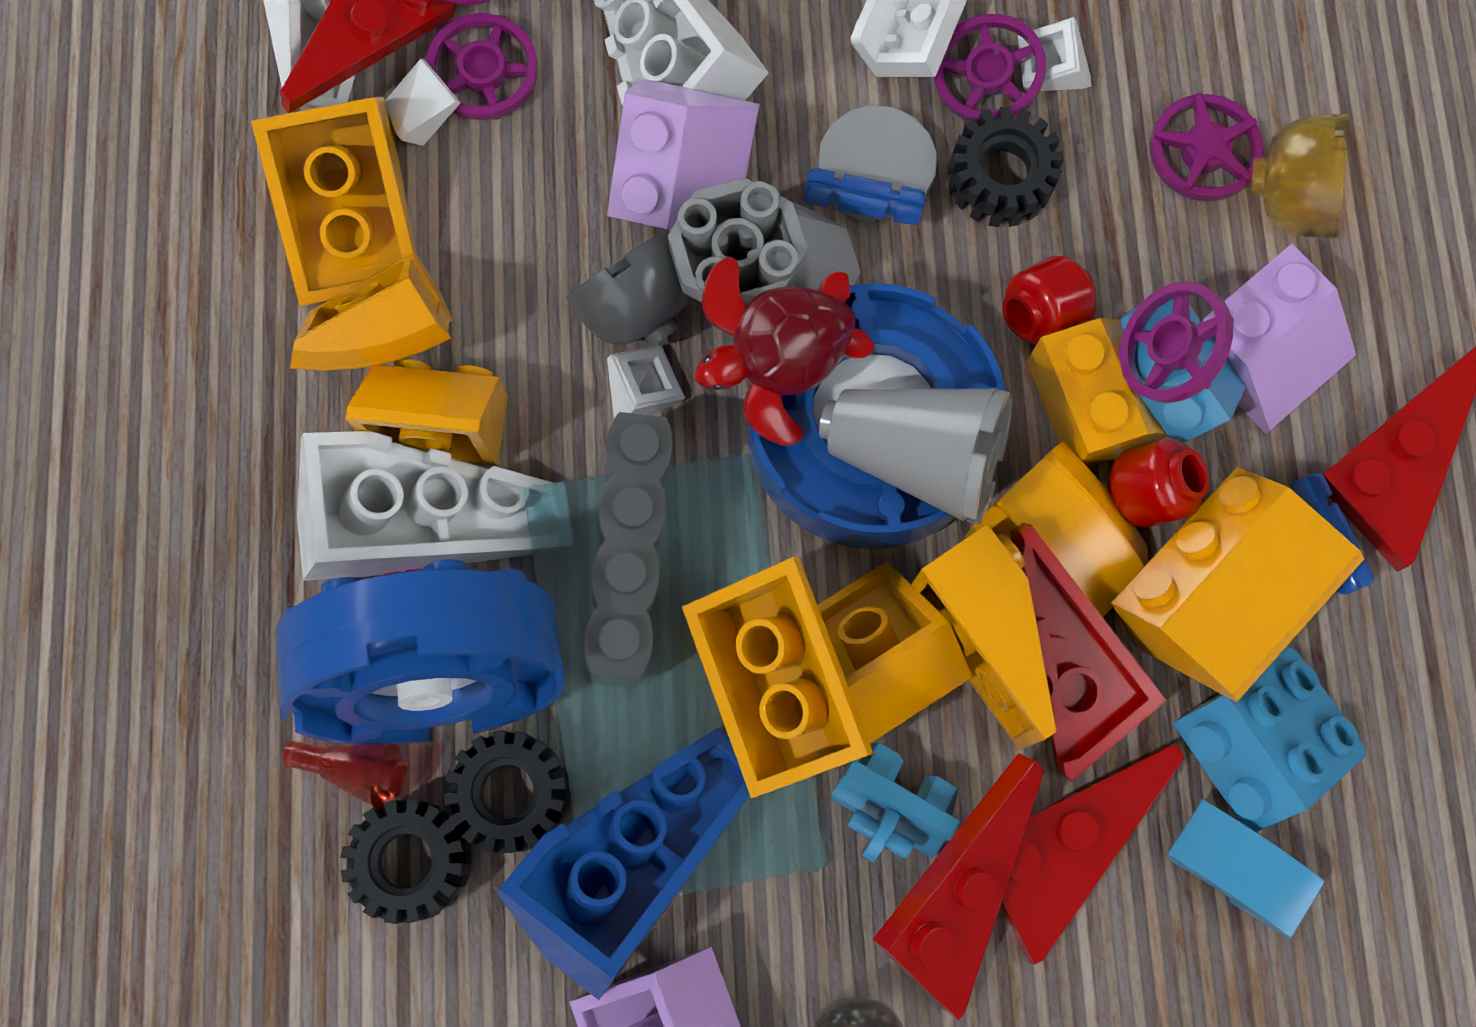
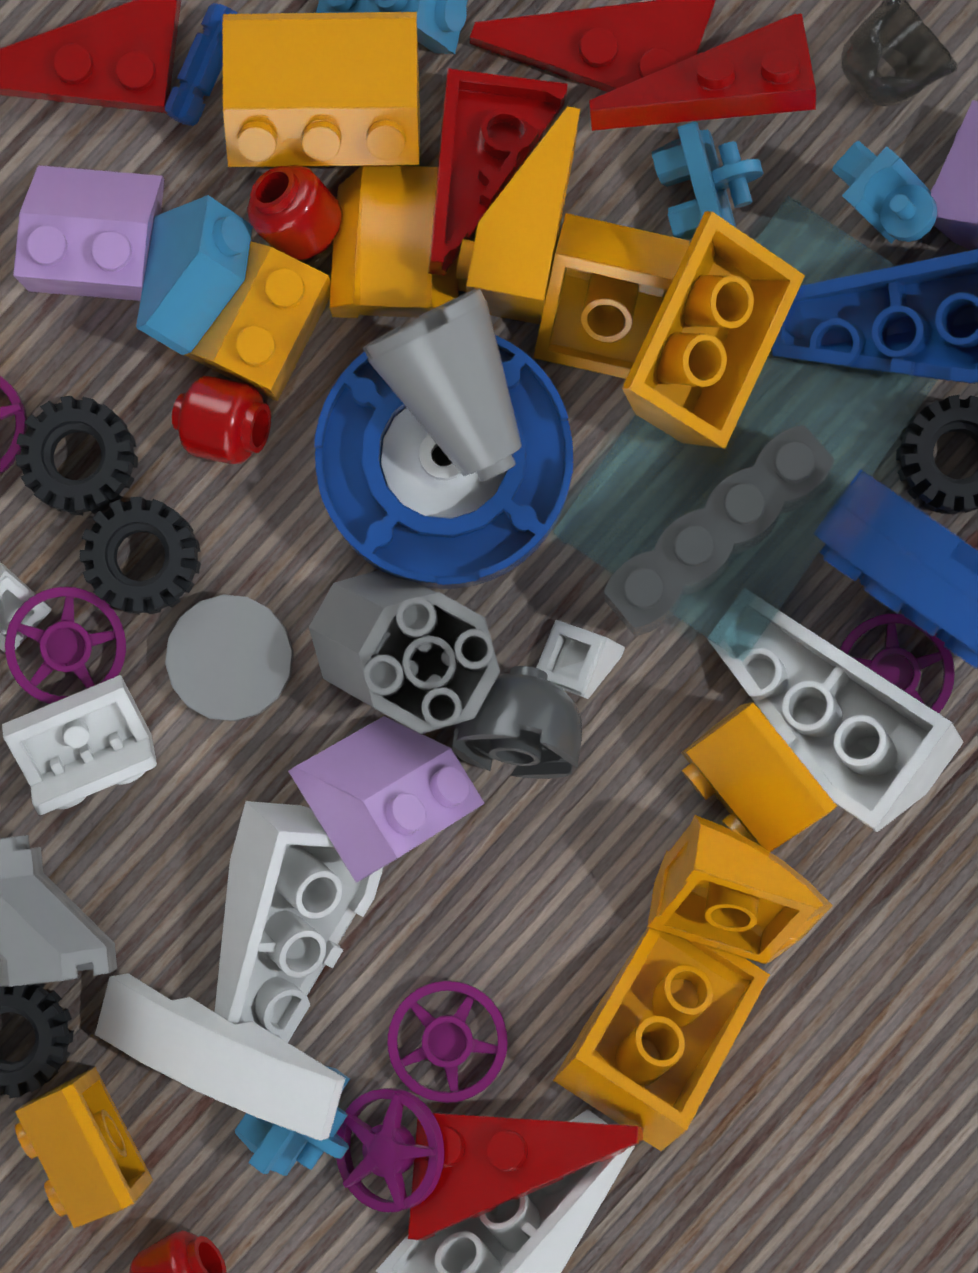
camera: 130 degrees left, 10 degrees up
(420, 104) = (529, 1052): white slope -> none
(752, 929) = (886, 193): none -> dark azure hips
(781, 343) = (478, 554): animal -> none
(864, 196) = (274, 632): blue axle -> none
(1130, 161) = (45, 434): none -> black tyre
(1176, 342) = (191, 281): magenta wheel -> none

